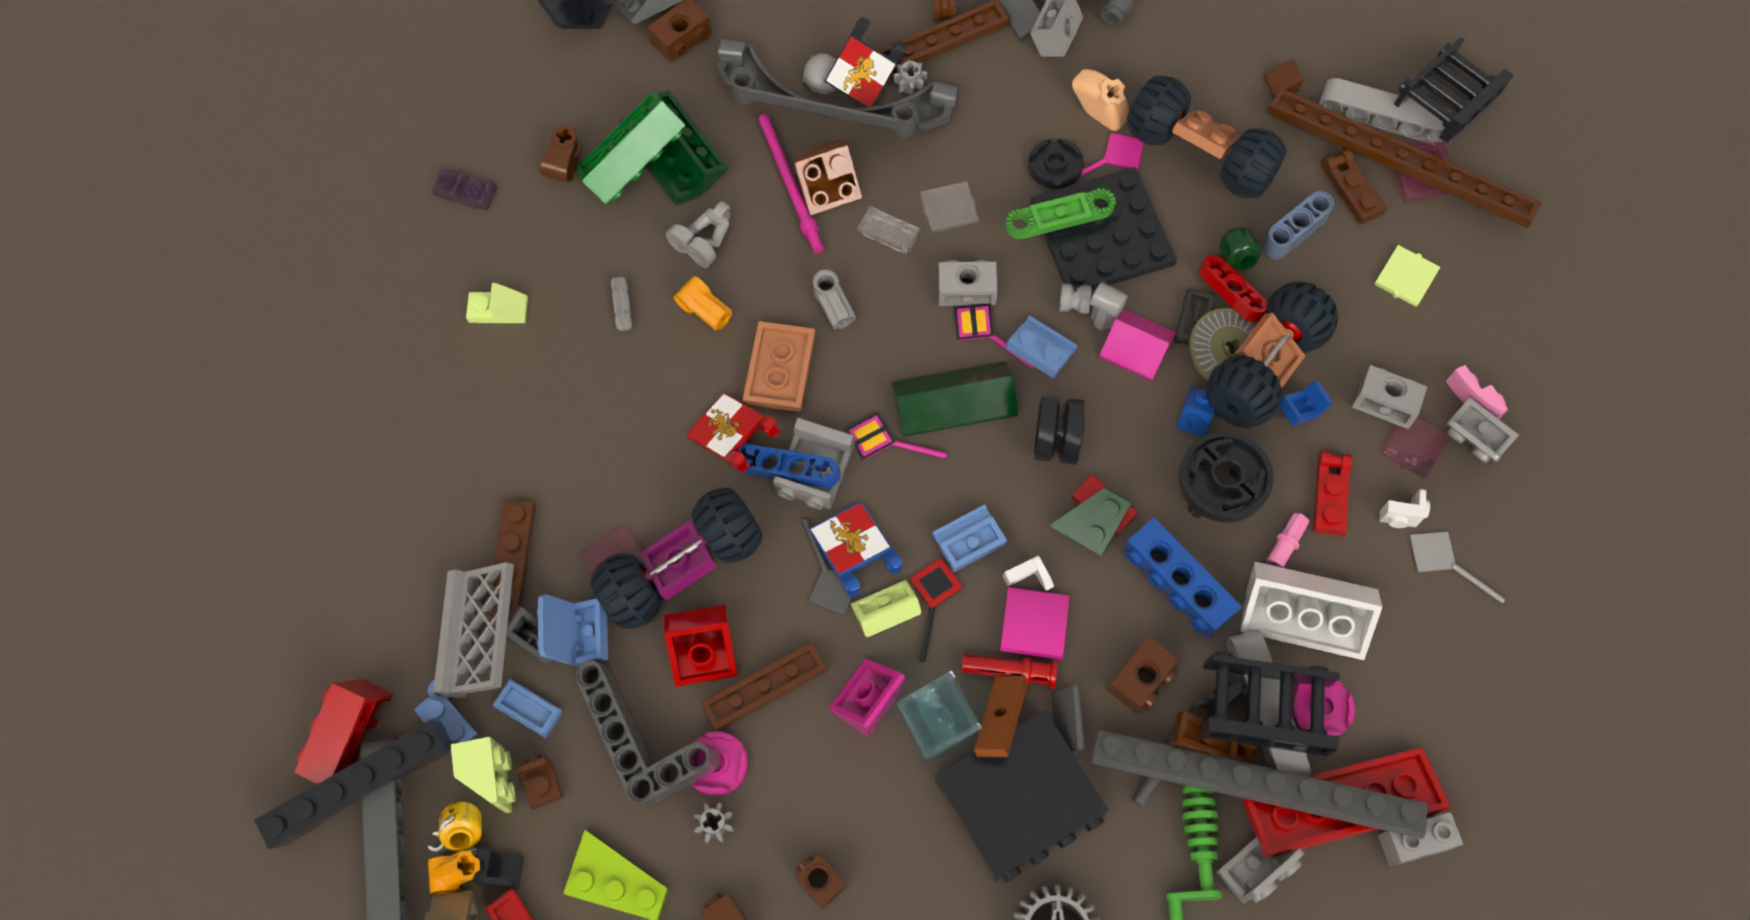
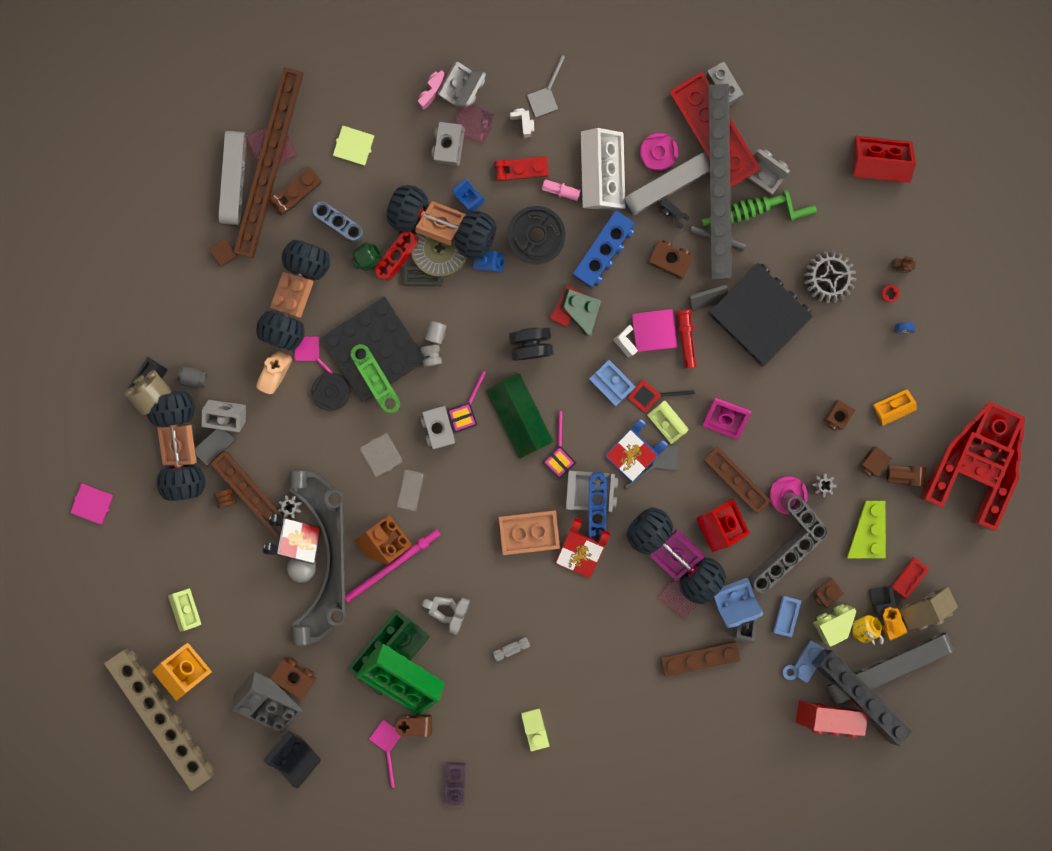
camera: 110 degrees left, 20 degrees up
(460, 627) = (757, 671): light grey fence -> none
(561, 116) = (386, 737): none -> dark pink piece
(697, 299) = (497, 598): light orange piece -> none
(833, 300) = (476, 510): light grey piece -> none
(939, 716) = (732, 372): clear light blue slope -> none
(1001, 716) = (712, 336): dark orange tile -> none
(1041, 347) = (470, 369): medium blue plate -> none
(1137, 344) = (450, 307): dark pink slope -> none
(1187, 736) = (700, 210): reddish brown plate -> none
(1252, 730) = (689, 171): black fence -> none
(1466, 109) = (209, 118): black fence -> none

